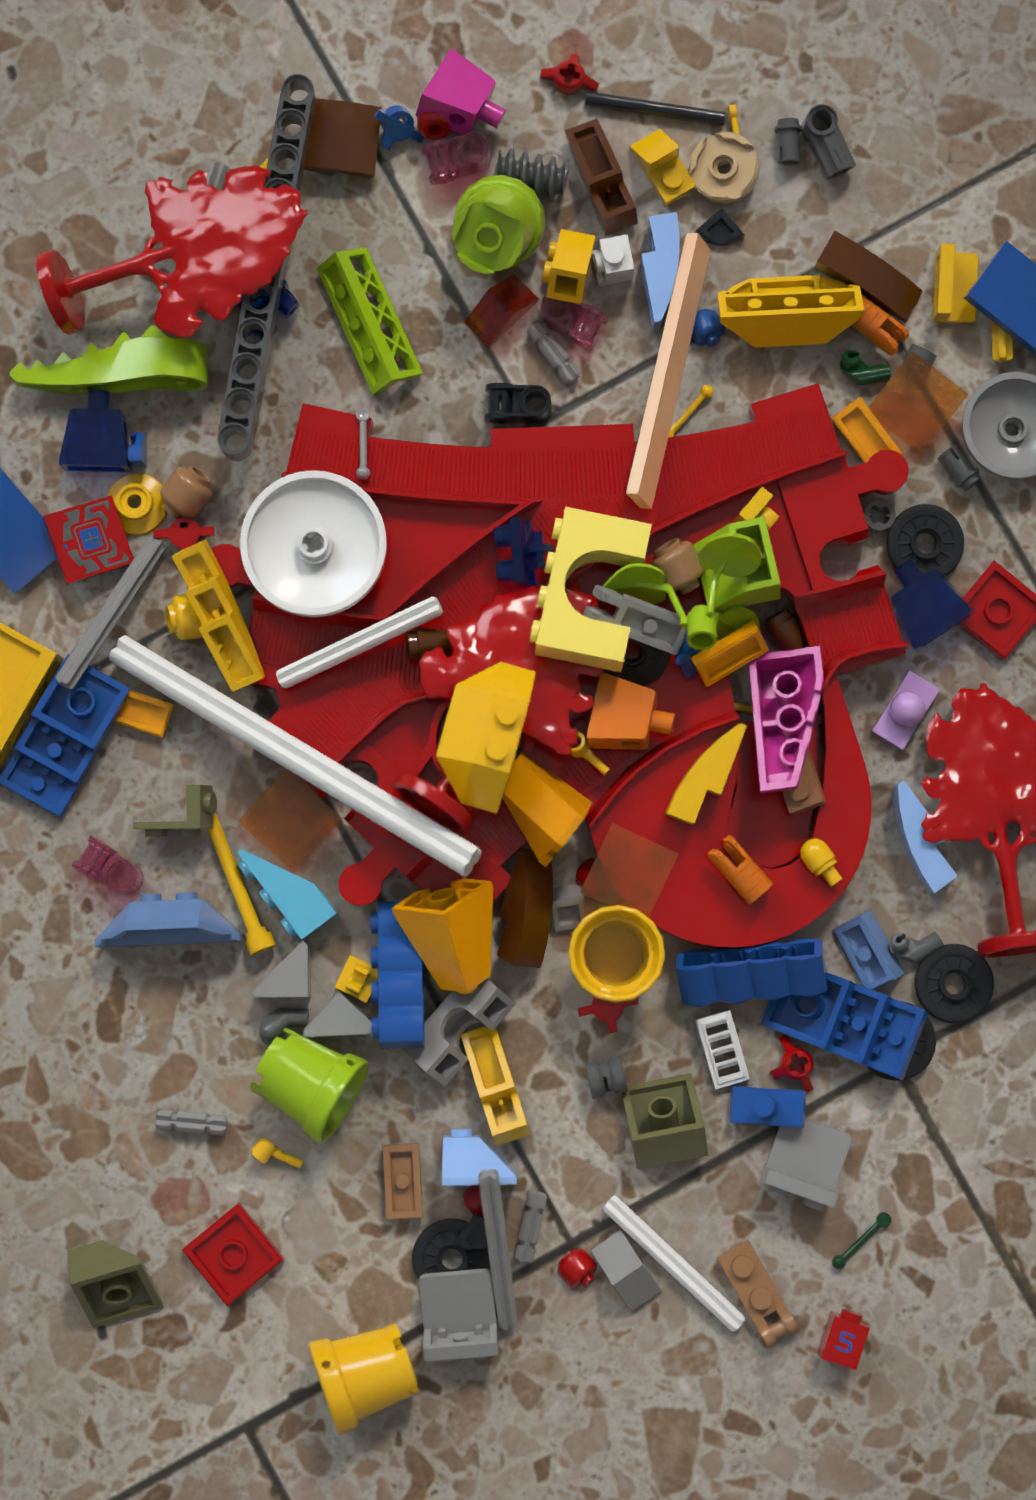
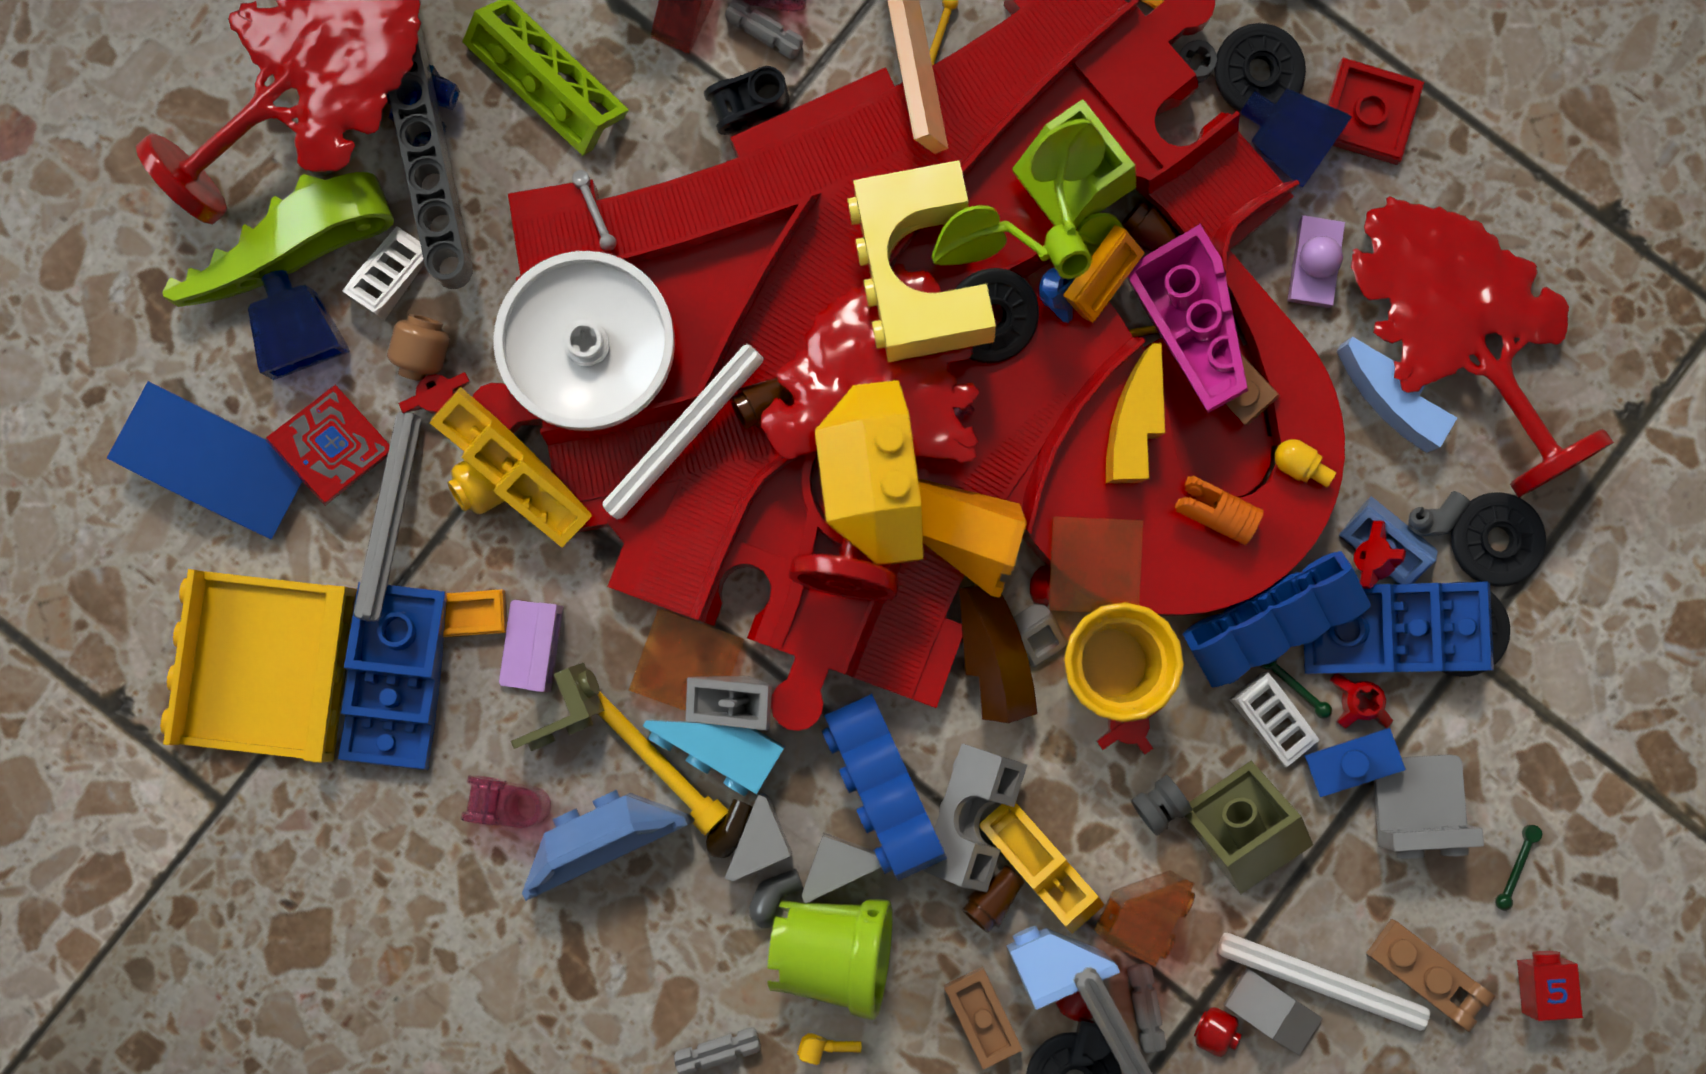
camera: 25 degrees left, 0 degrees up
(138, 450) = (345, 323): blue tile -> none
(149, 514) = (387, 386): yellow piece -> none
(177, 756) = (531, 645): none -> lavender panel
(182, 442) = (376, 262): none -> white slope
(265, 962) = (726, 836): none -> dark brown arm
(296, 756) = (668, 590): white axle -> none
(309, 860) = (729, 701): none -> light grey slope
(357, 978) = (837, 811): yellow tile -> none
(444, 1099) = (991, 907): none -> reddish brown cone
(451, 932) = (923, 715): light orange slope -> none
(526, 549) = (814, 239): clear blue hips -> none
(554, 1152) = (1144, 914): none -> clear orange slope
(584, 751) = (992, 452): yellow hand -> none
(625, 715) = (1017, 390): orange torso -> none
(647, 622) = (1005, 273): light grey hinge -> none
(679, 564) = (1009, 194): medium nougat head -> none
(757, 508) = (1067, 96): yellow tile -> none
(762, 1056) = (1322, 709): none -> dark green hinge
(850, 957) = (1376, 557): none -> red piece

